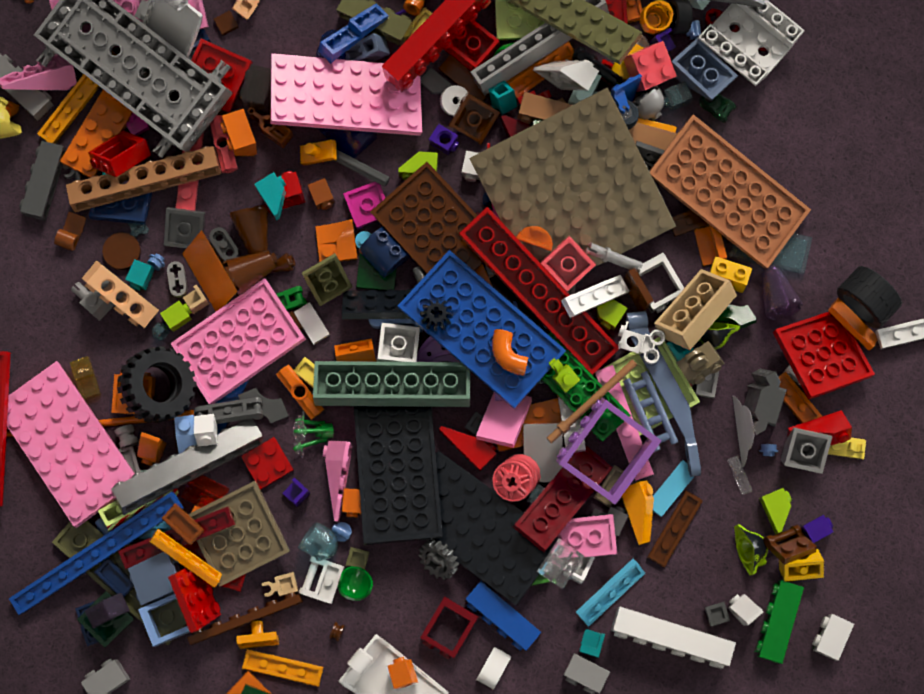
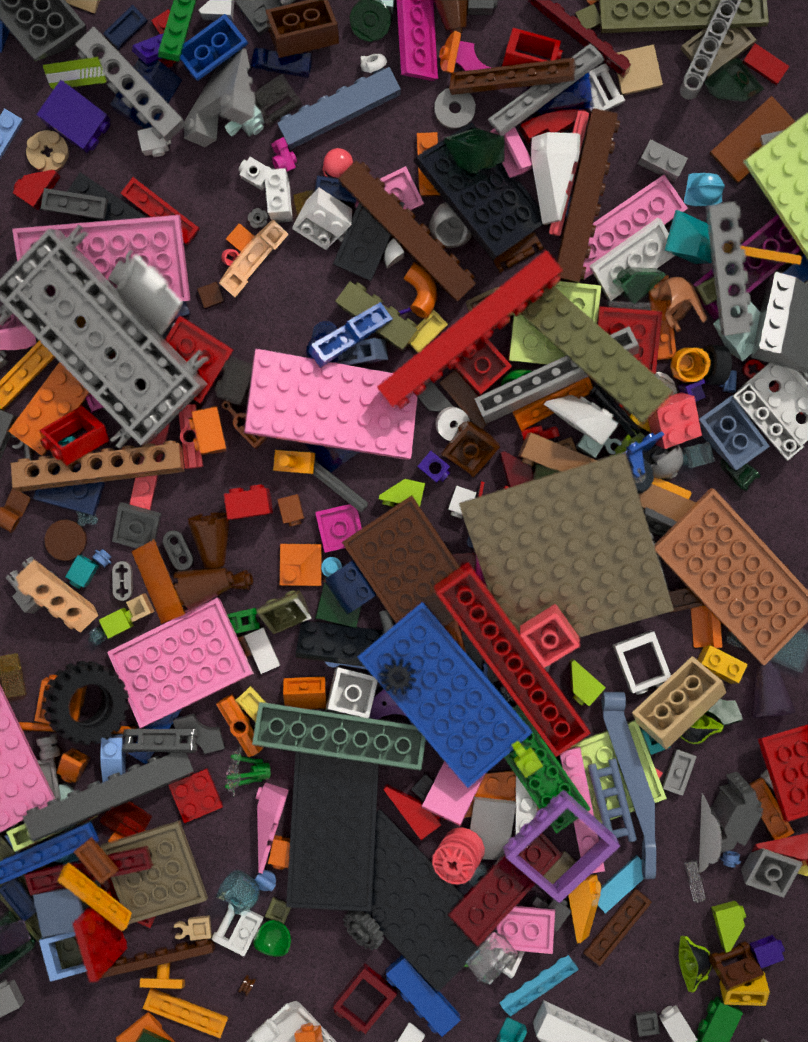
camera: 10 degrees right, 10 degrees up
(205, 430) = (132, 761): white brick -> none
(273, 193) = (236, 512): teal slope -> none
(296, 492) = (222, 833): dark purple panel -> none
(502, 97) = (505, 430): teal brick -> none
(505, 356) = (466, 733): orange cylinder -> none
(536, 236) = (518, 600): orange plate -> none
(564, 426) = (517, 814): medium nougat bar -> none
(595, 296) = (573, 675): white plate -> none
(606, 254) = (593, 631): light grey pin -> none
(638, 290) = (619, 670): reddish brown plate -> none
(645, 343) = (617, 733): white piece -> none
(700, 363) = (674, 760): dark tan brick -> none

